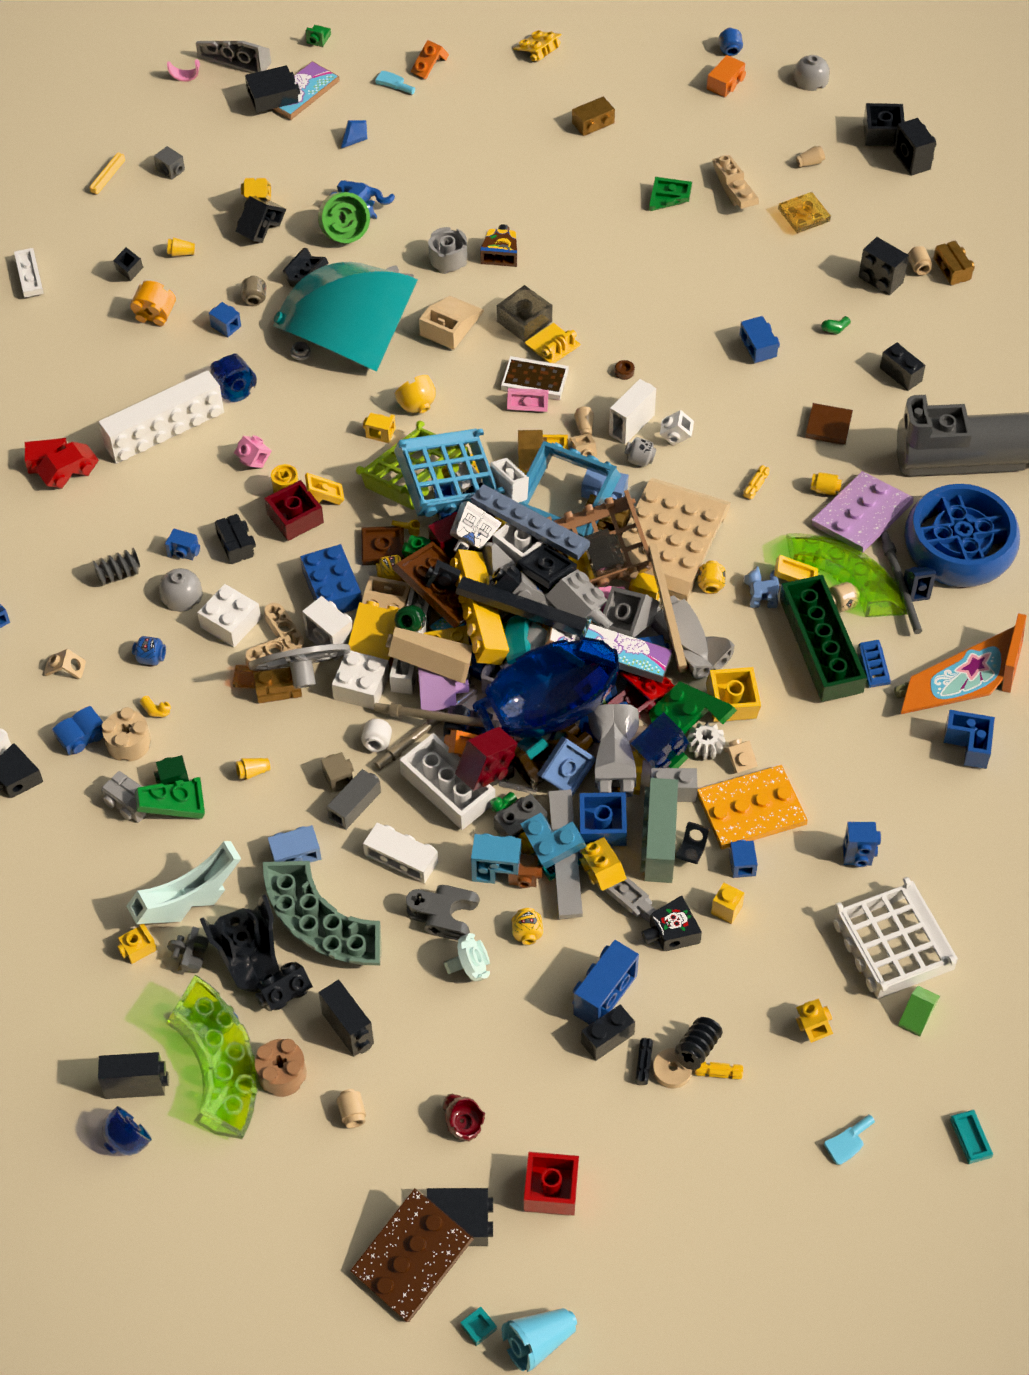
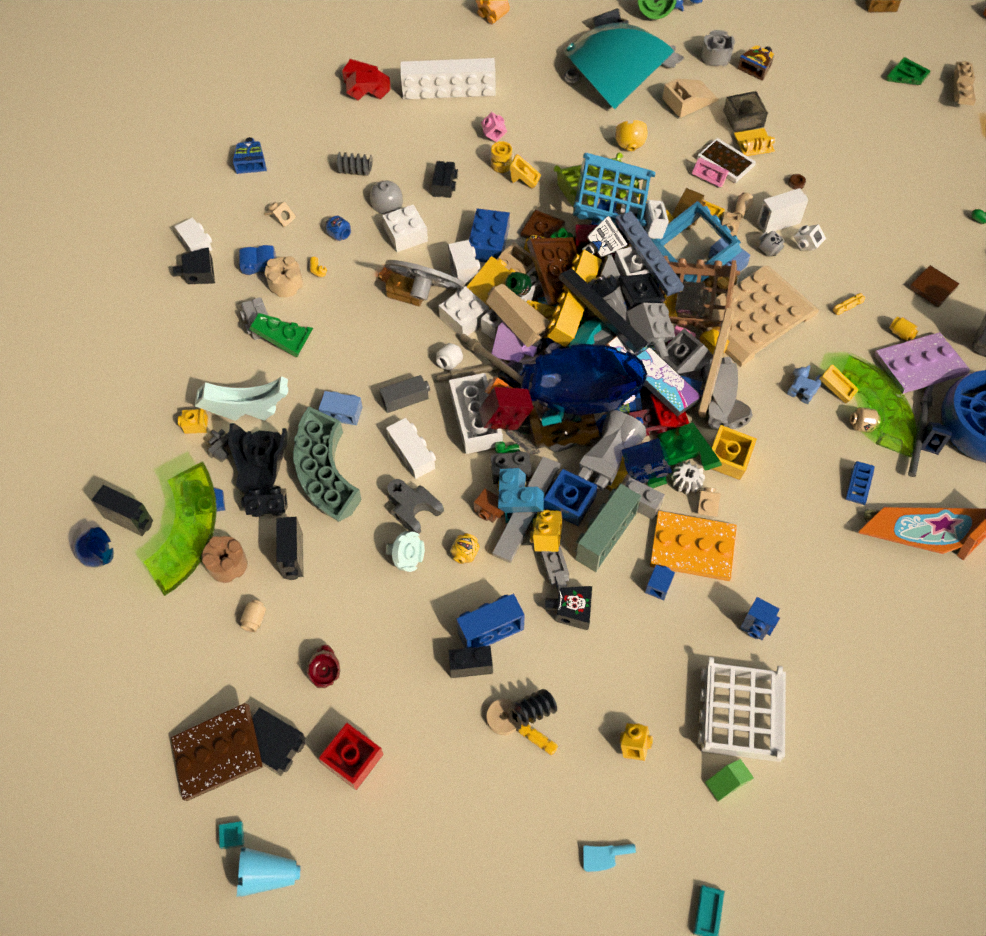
camera: 30 degrees right, 5 degrees up
(171, 770) = (297, 314): dark green brick -> none
(182, 545) = (406, 168): blue brick -> none
(225, 319) = (534, 35): blue brick -> none
(233, 377) = (512, 73): clear blue brick -> none
(251, 767) = (351, 338): yellow cone -> none
(253, 290) = (565, 24): dark tan head -> none
(283, 639) = (432, 260): tan beam -> none
(294, 510) = (495, 177): dark red brick -> none
(337, 771) = (405, 367): dark tan brick -> none
(379, 427) = (592, 145): yellow brick -> none
(413, 526) = (571, 223): yellow hand -> none
(442, 575) = (559, 261): black bracket -> none
(494, 856) = (470, 484): dark azure brick -> none
(567, 765) = (566, 444): medium blue tile -> none
(644, 1061) = (485, 699): black axle -> none
(691, 849) = (626, 554): black bracket -> none
(711, 577) = (769, 357): yellow head -> none
(727, 903) = (625, 610): yellow brick -> none
(759, 339) = (914, 201): blue brick -> none
(822, 638) = (828, 444): dark green brick -> none
(972, 731) = (910, 577): blue brick -> none

